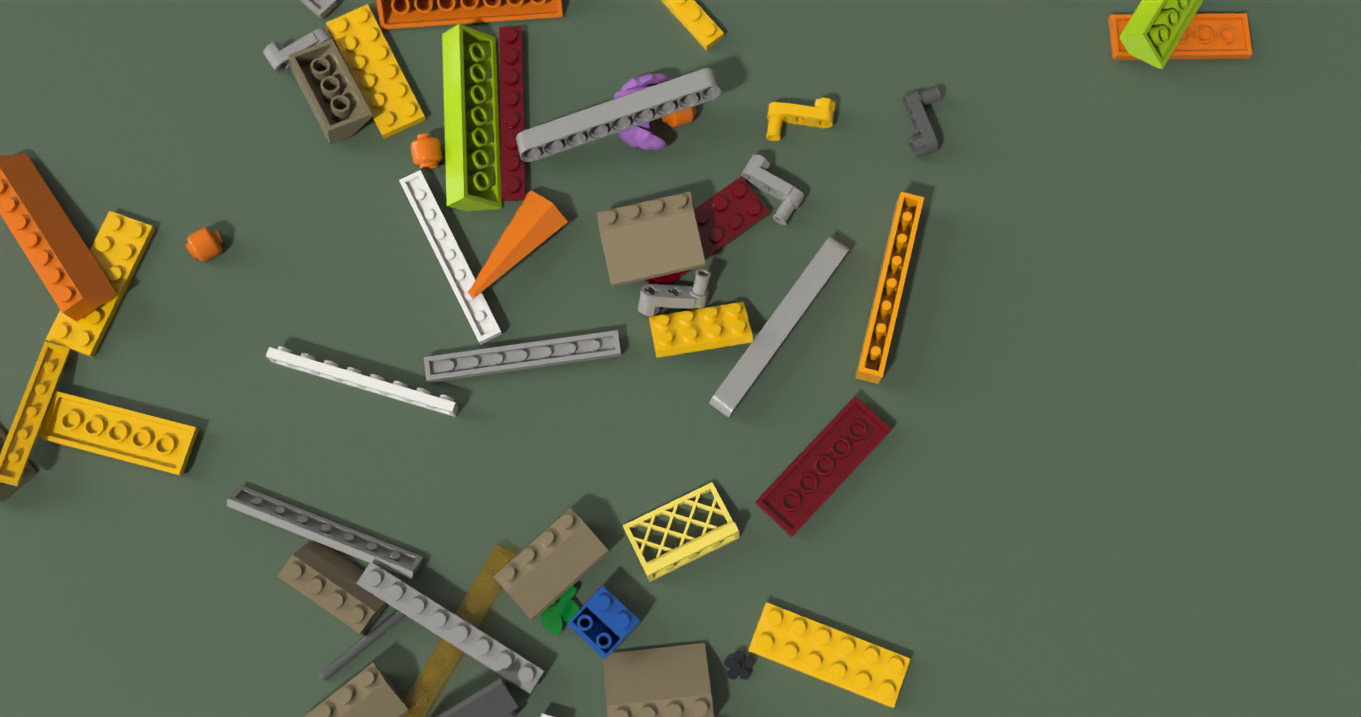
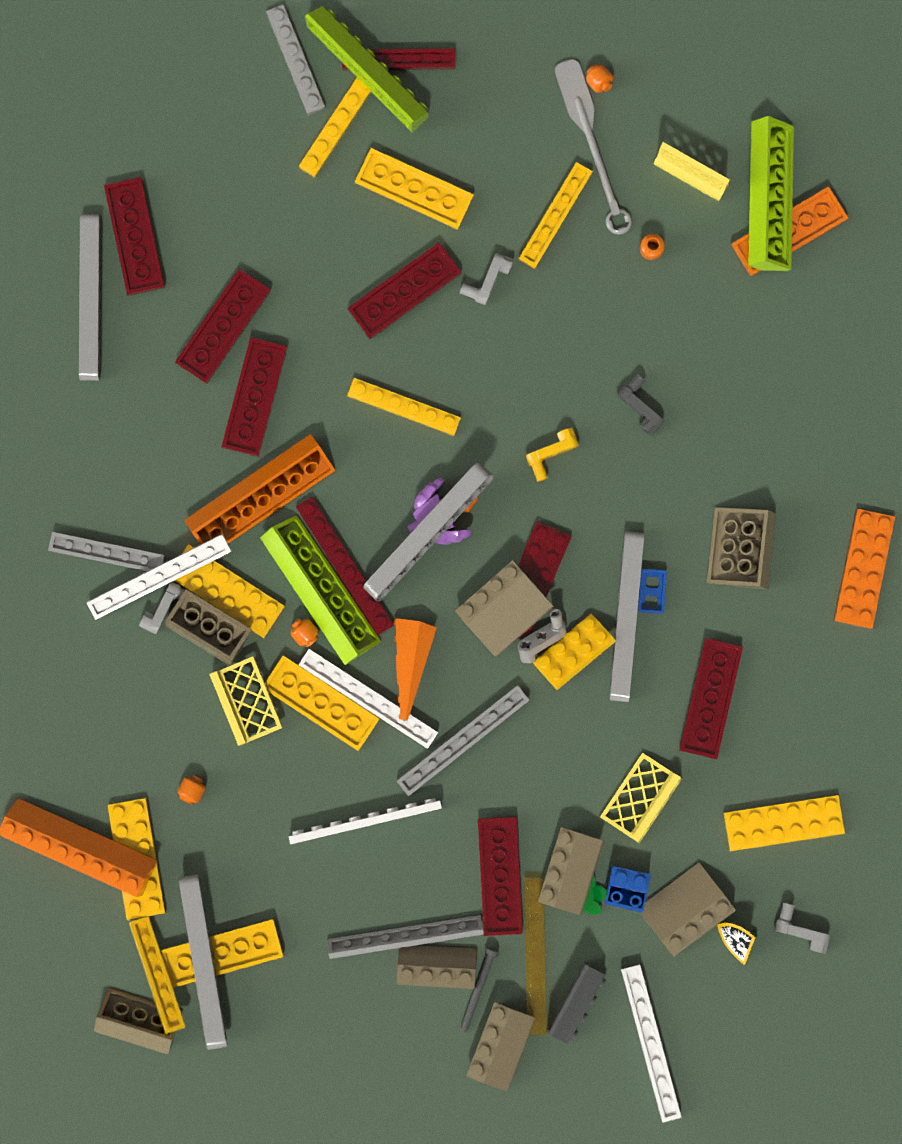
camera: 30 degrees left, 10 degrees up
(87, 429) = (203, 962): none -> light grey beam
(300, 185) = (230, 707): none -> light yellow fence
(315, 14) = (159, 576): none -> white plate
(397, 233) = (321, 703): none -> yellow plate
(450, 627) = (528, 950): light grey plate -> none
(470, 527) = (500, 876): none -> dark red plate
(739, 665) = (729, 864): black plant -> none
(757, 175) = (545, 512): light grey beam -> none
(815, 312) = (658, 592): none -> blue piece
(889, 288) = (686, 546): light orange brick -> none
(951, 324) = (741, 548): none -> dark tan slope
(1076, 424) = (864, 569): none -> orange plate

